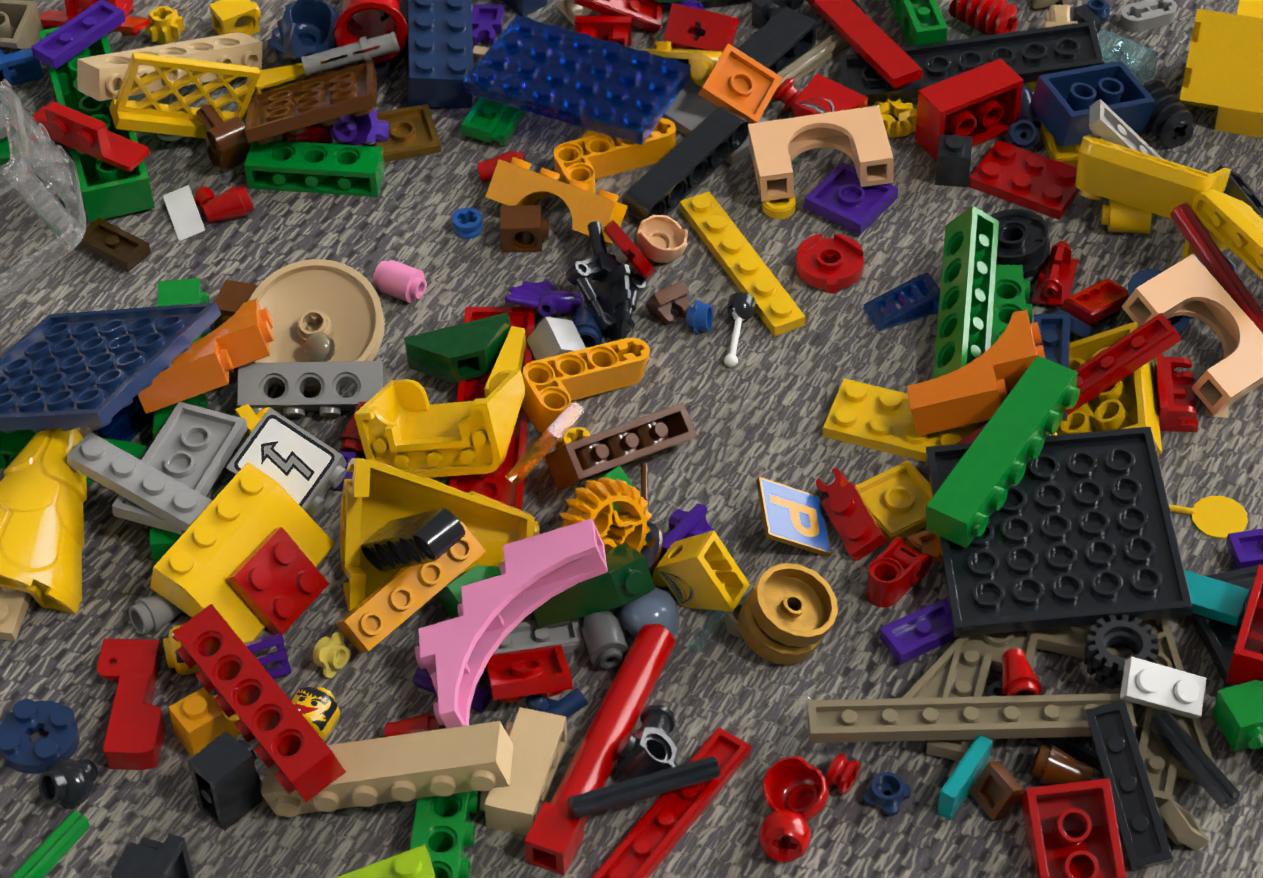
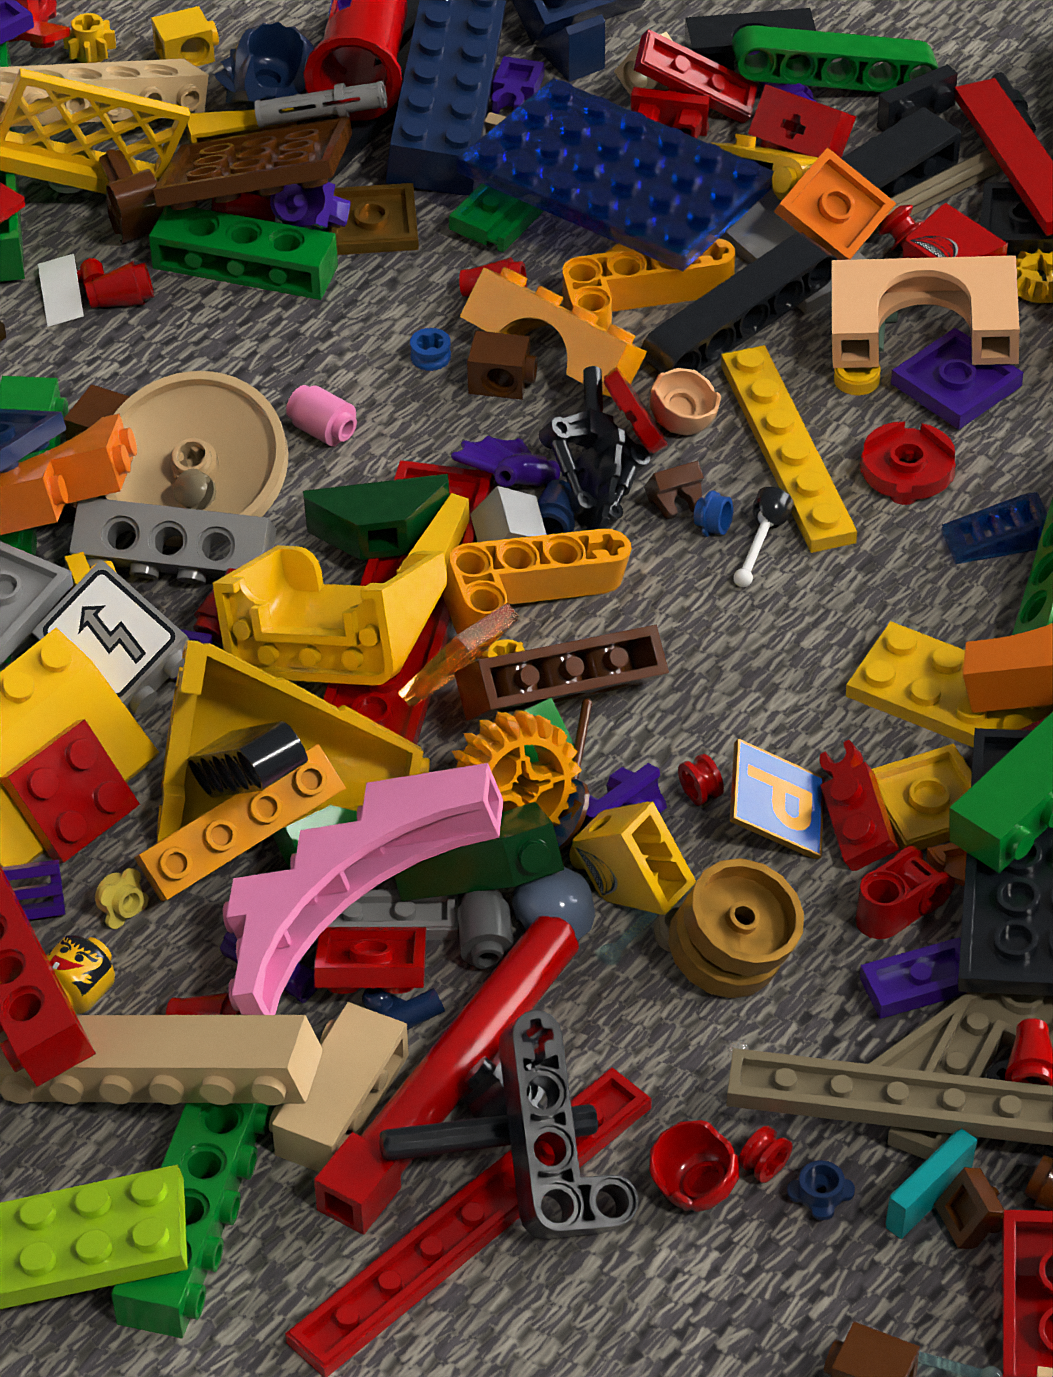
camera: 10 degrees right, 0 degrees up
(694, 776) = (556, 1127): none -> black beam
(735, 510) = (701, 779): none -> red bush
(784, 836) = (665, 1242): red piece -> none

